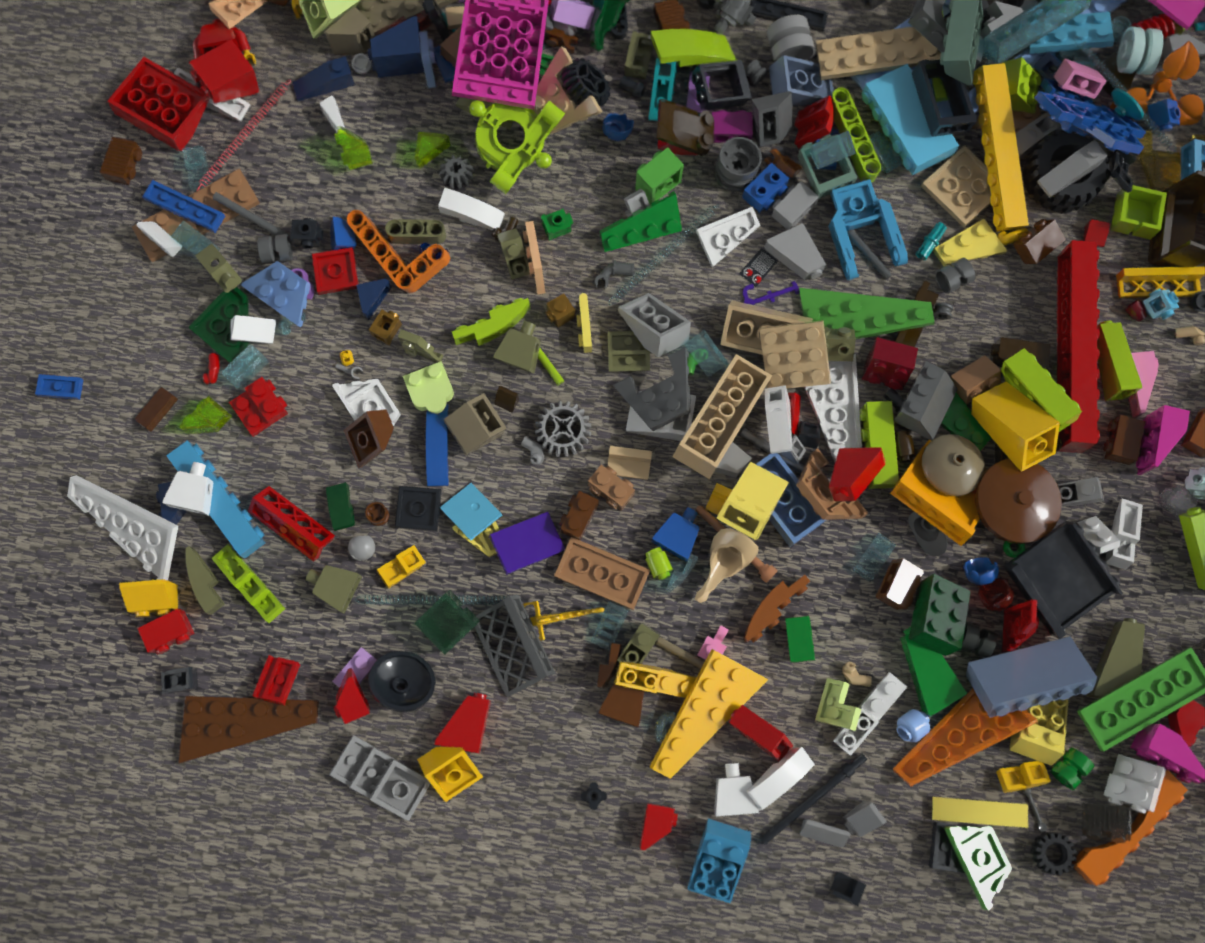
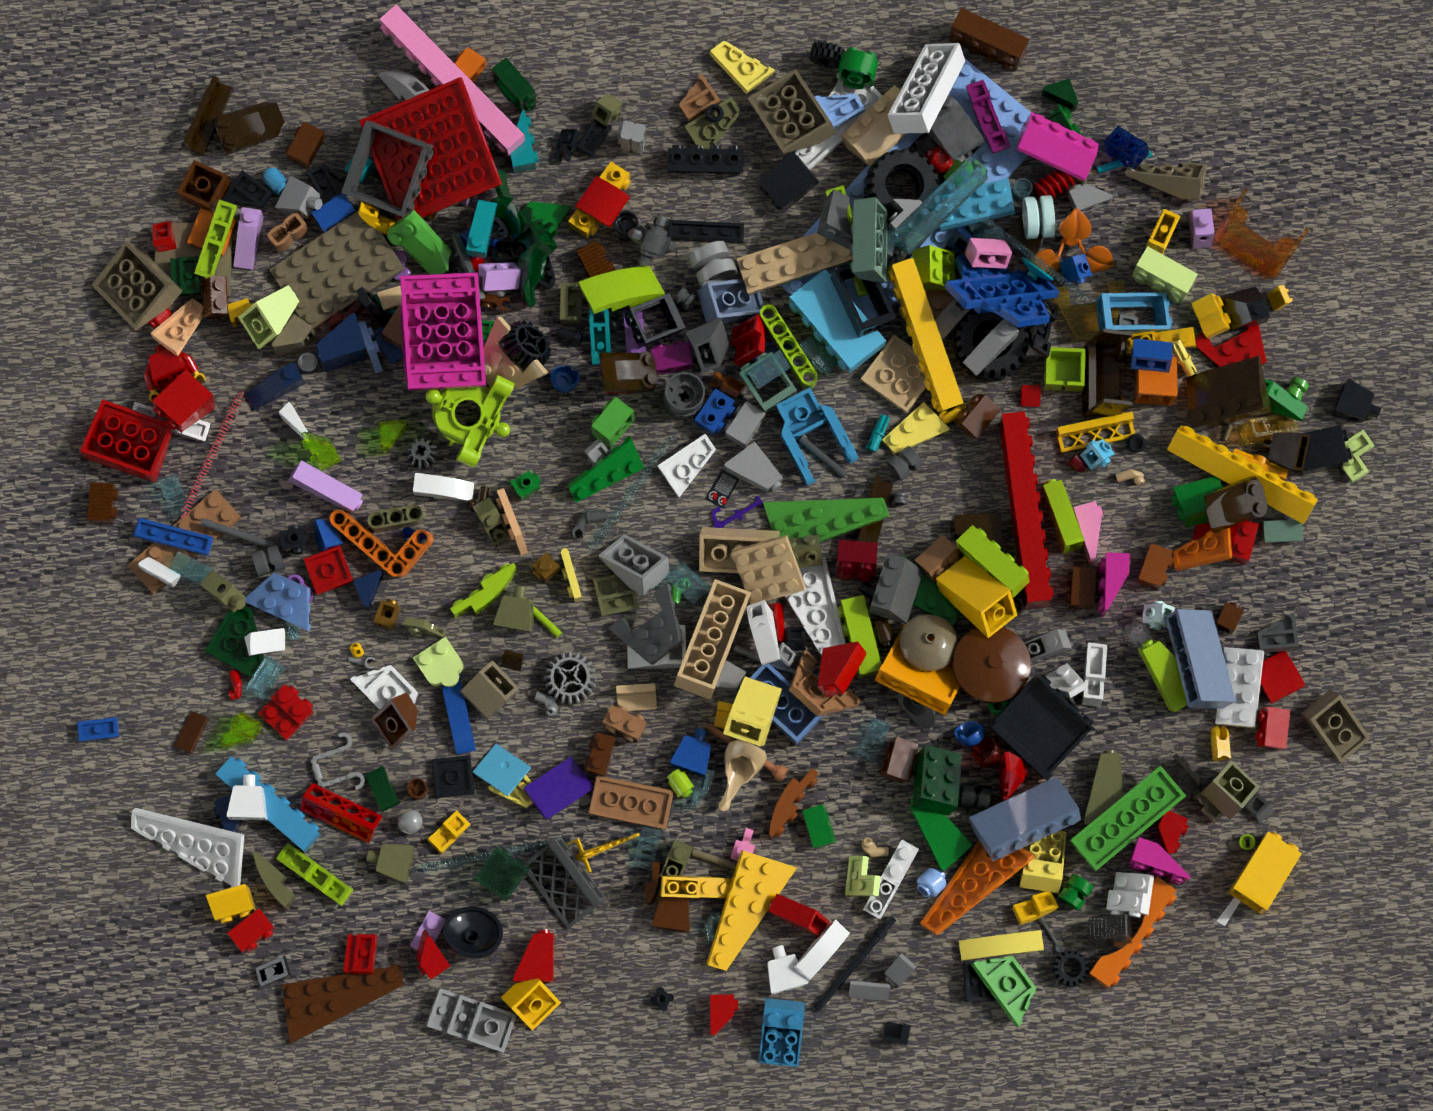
camera: 10 degrees left, 0 degrees up
(276, 473) = (317, 772): none -> light grey piece
(349, 185) = (325, 487): none -> lavender slope

